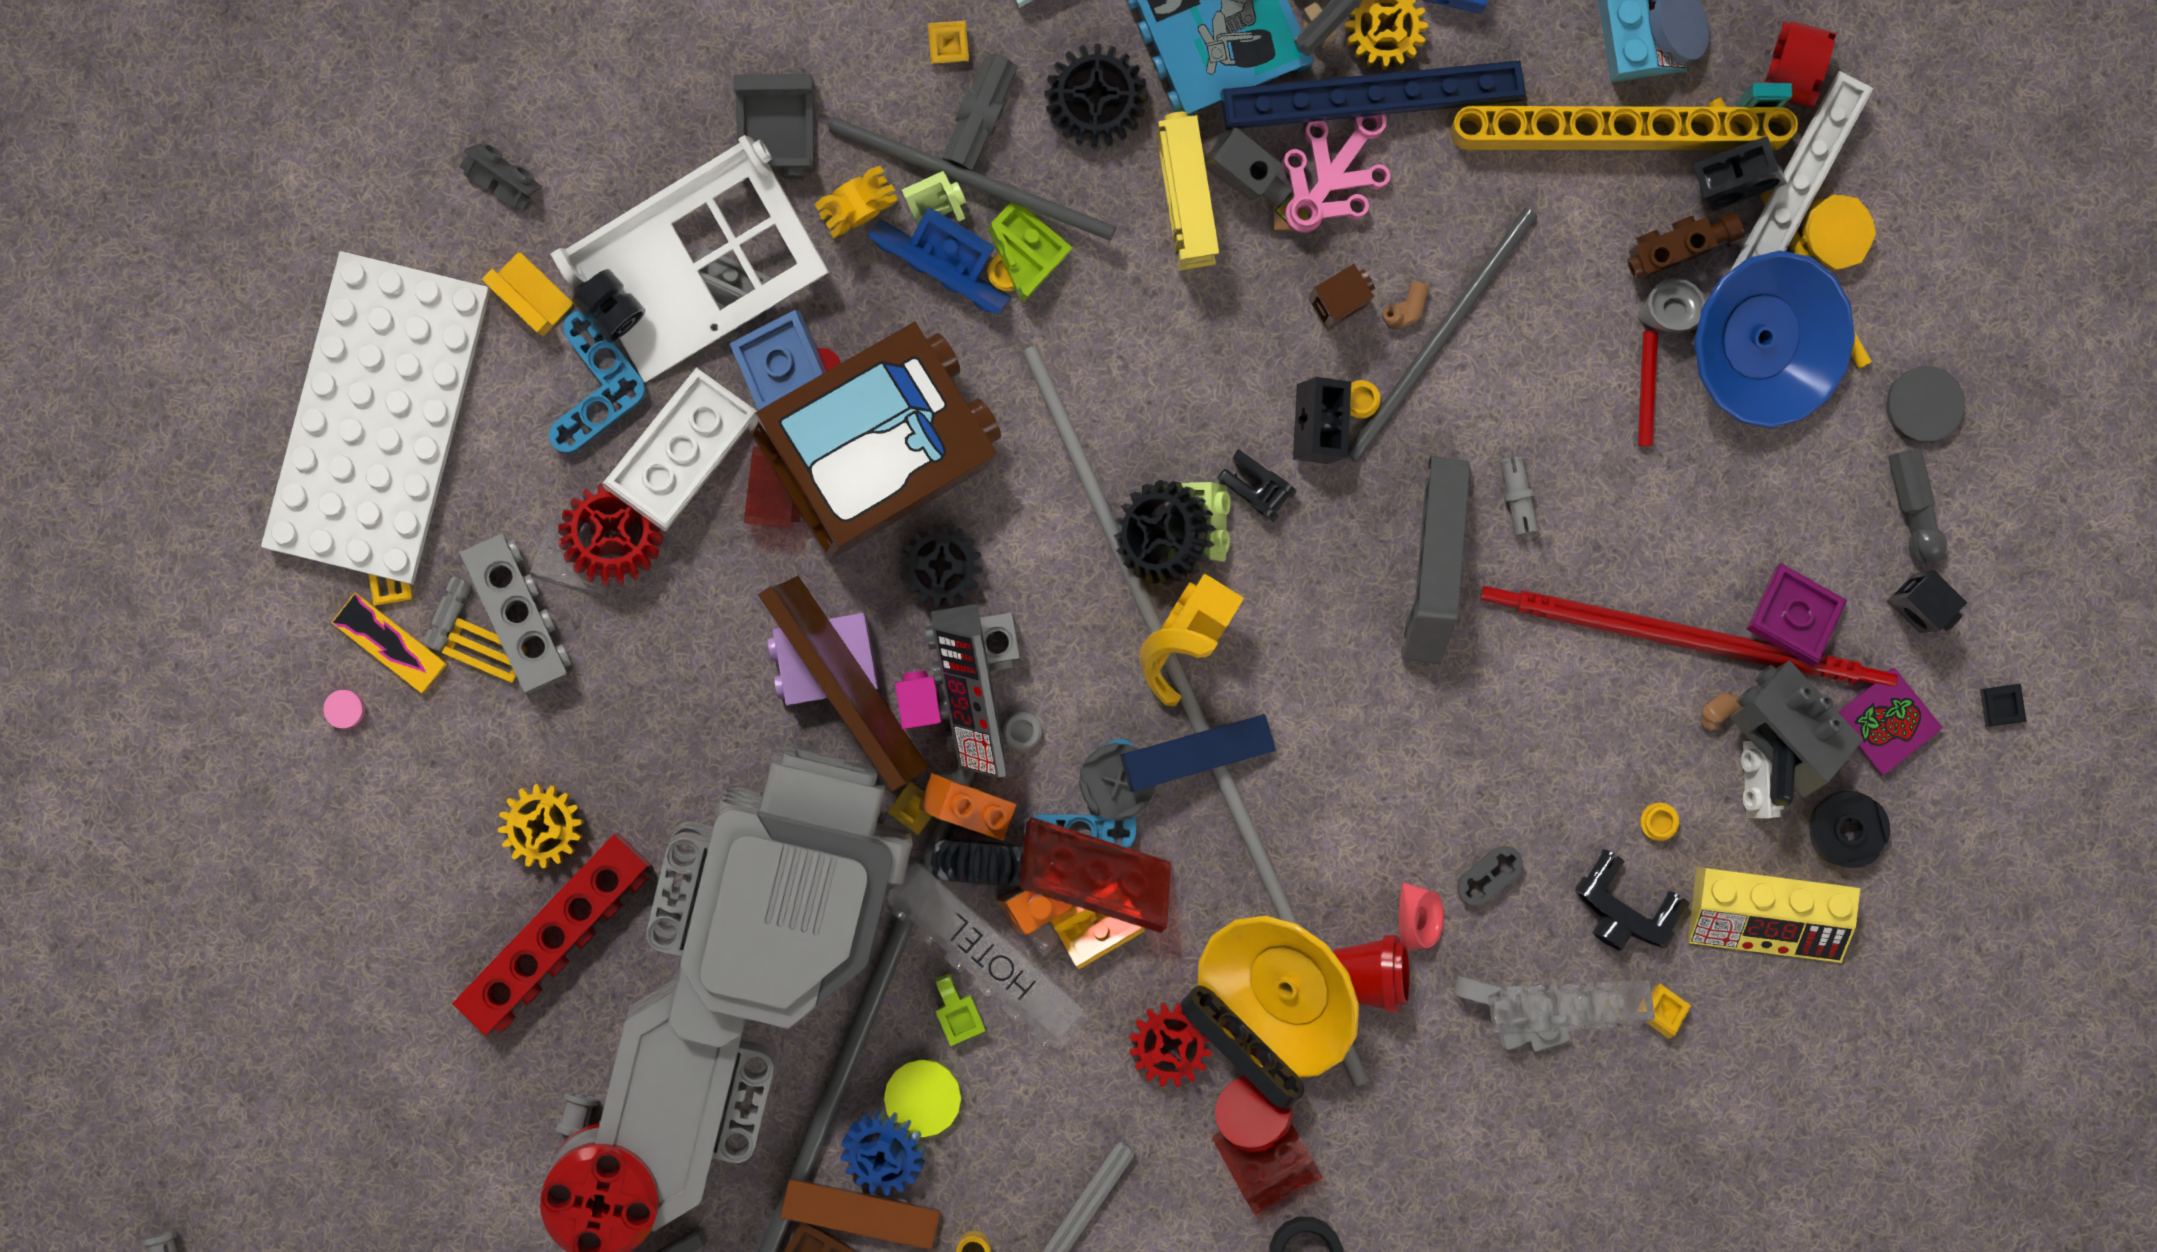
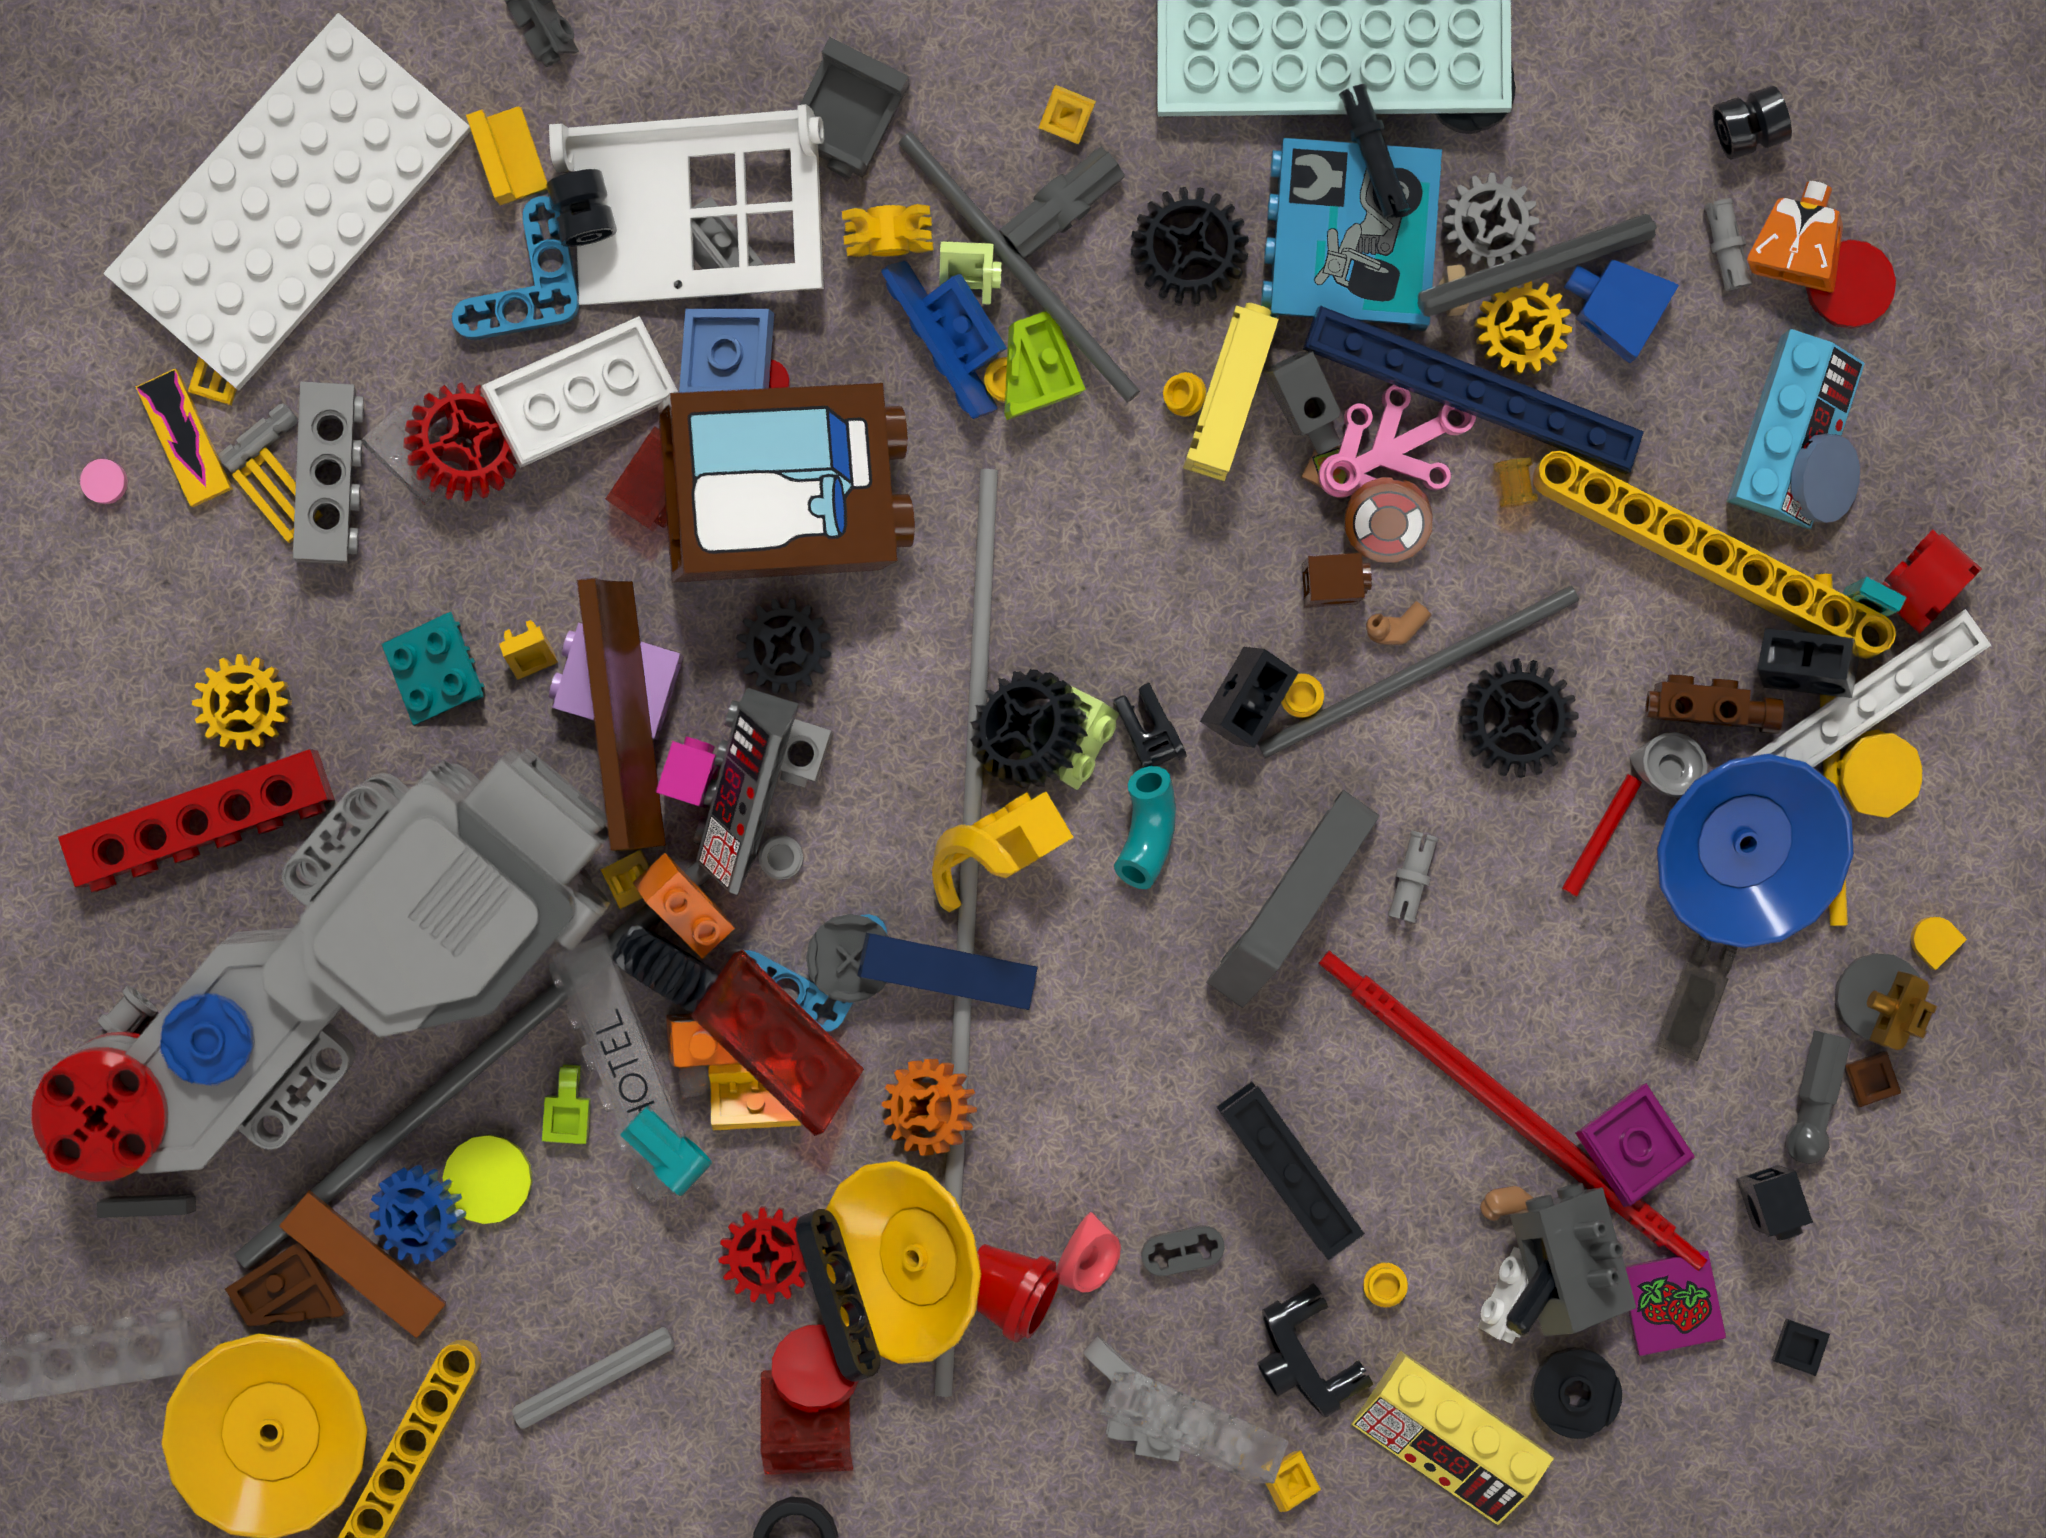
camera: 30 degrees right, 0 degrees up
(653, 1099) = (206, 1039): none -> blue tile
(676, 723) = (433, 668): none -> teal hinge
(743, 672) = (527, 651): none -> yellow tile
(1061, 1006) = (674, 1158): none -> teal piece
(1151, 212) = (1184, 394): none -> yellow plate
(1251, 857) = (945, 1108): none -> orange gear
(1297, 561) = (1150, 827): none -> teal cylinder
(1359, 228) = (1388, 520): none -> tile
(1441, 150) = (1515, 482): none -> clear yellow bush
(1543, 770) = (1290, 1170): none -> black fence
(1552, 338) = (1504, 702): none -> black gear
(1785, 480) = (1695, 1002): none -> clear smoke hinge
(1945, 338) = (1935, 940): none -> yellow tile
(1950, 405) = (1901, 1011): none -> pearl gold piece
(1952, 470) = (1872, 1079): none -> reddish brown tile

